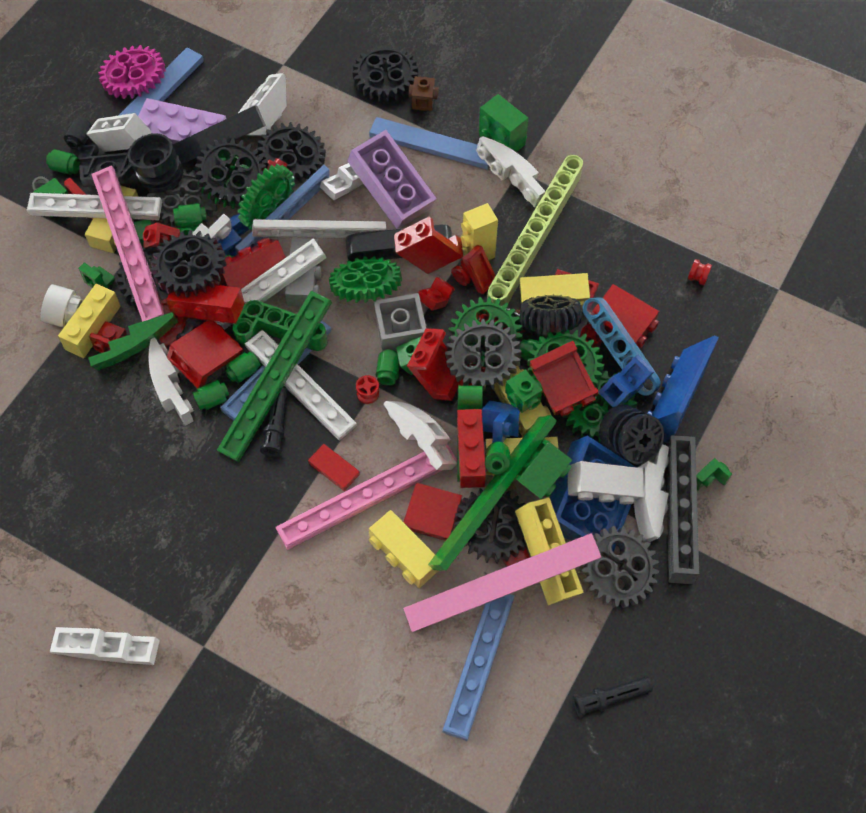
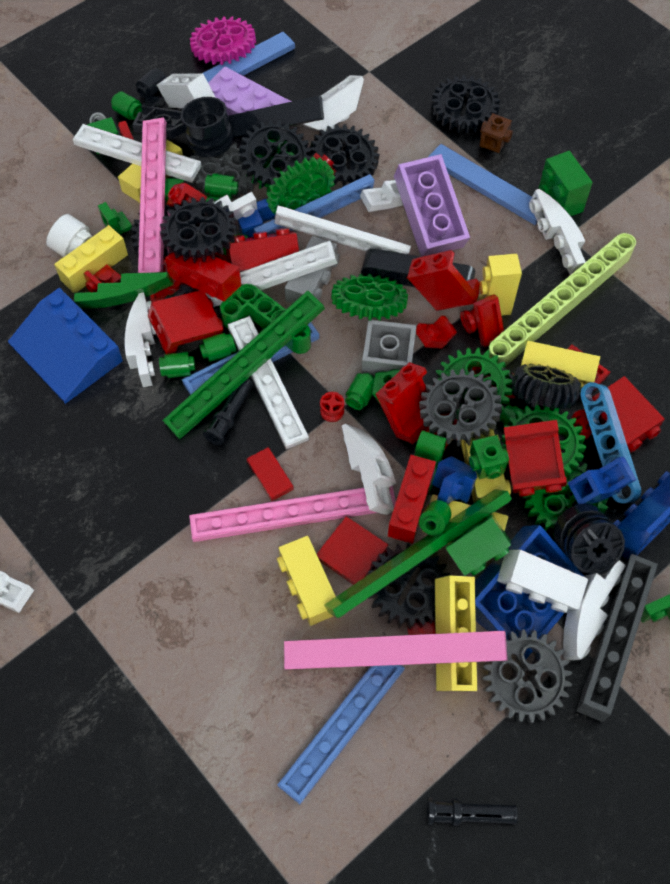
camera: 20 degrees right, 0 degrees up
(96, 410) = (64, 346): none -> blue slope

